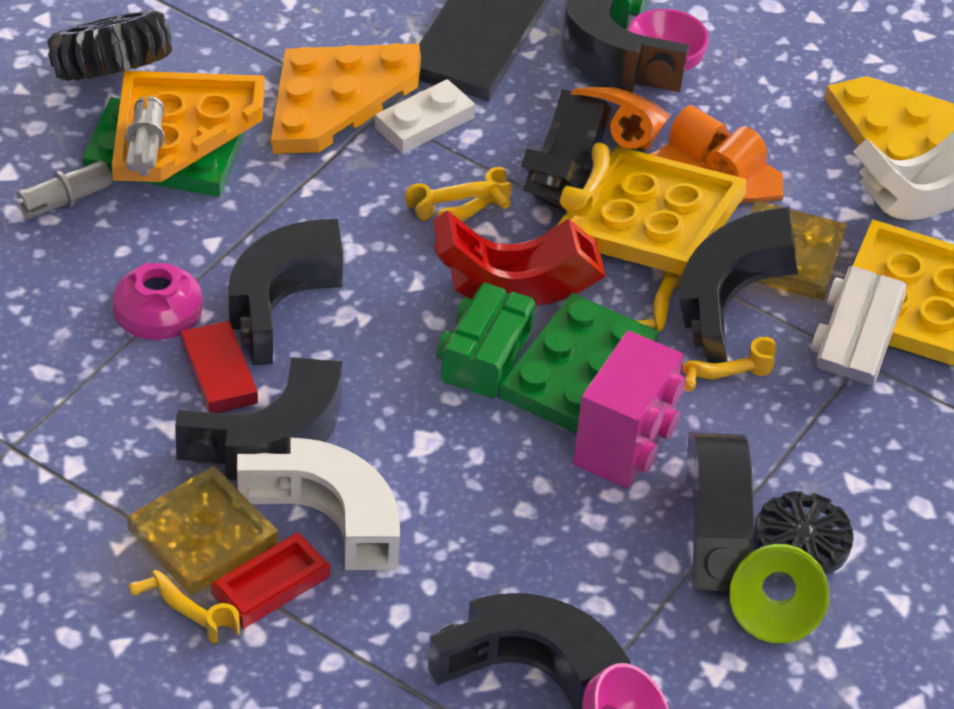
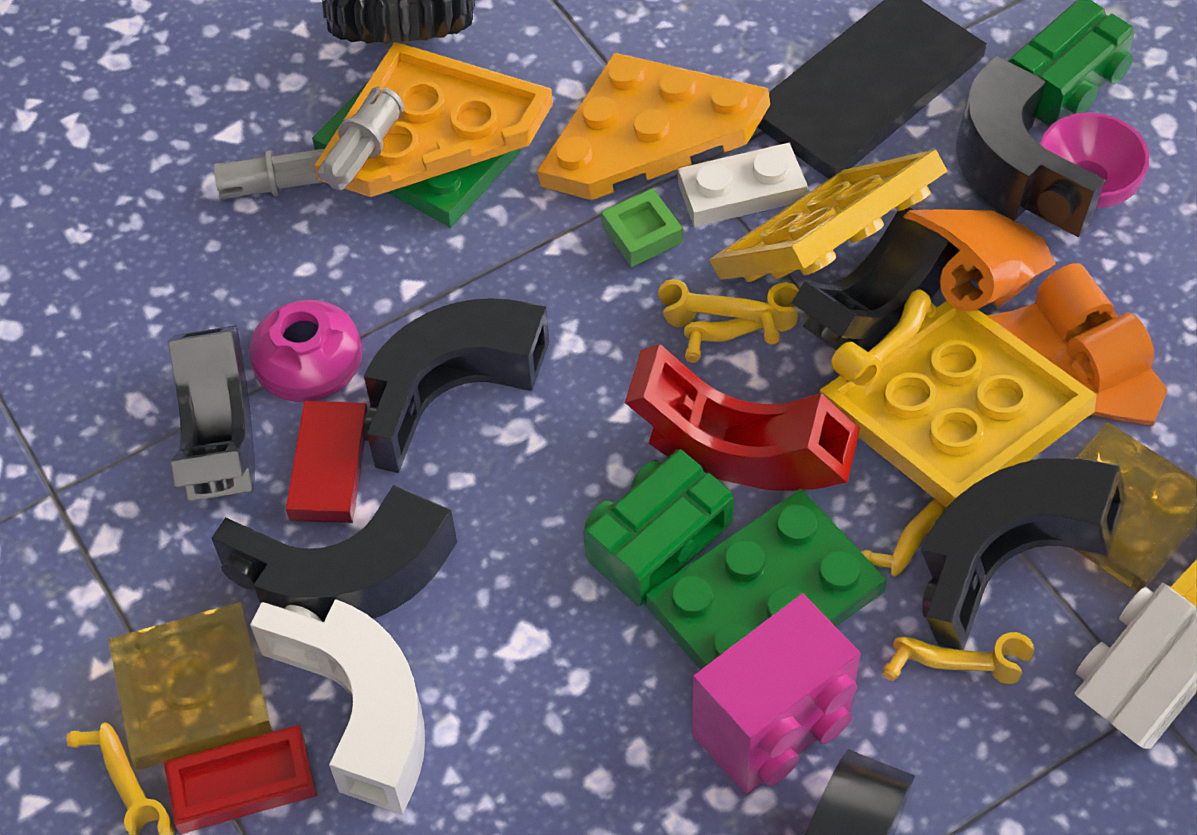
camera: 30 degrees right, 10 degrees up
(119, 355) = (214, 414): none -> arch
(370, 158) = (642, 227): none -> bright green plate
(512, 113) = (835, 211): none -> yellow plate

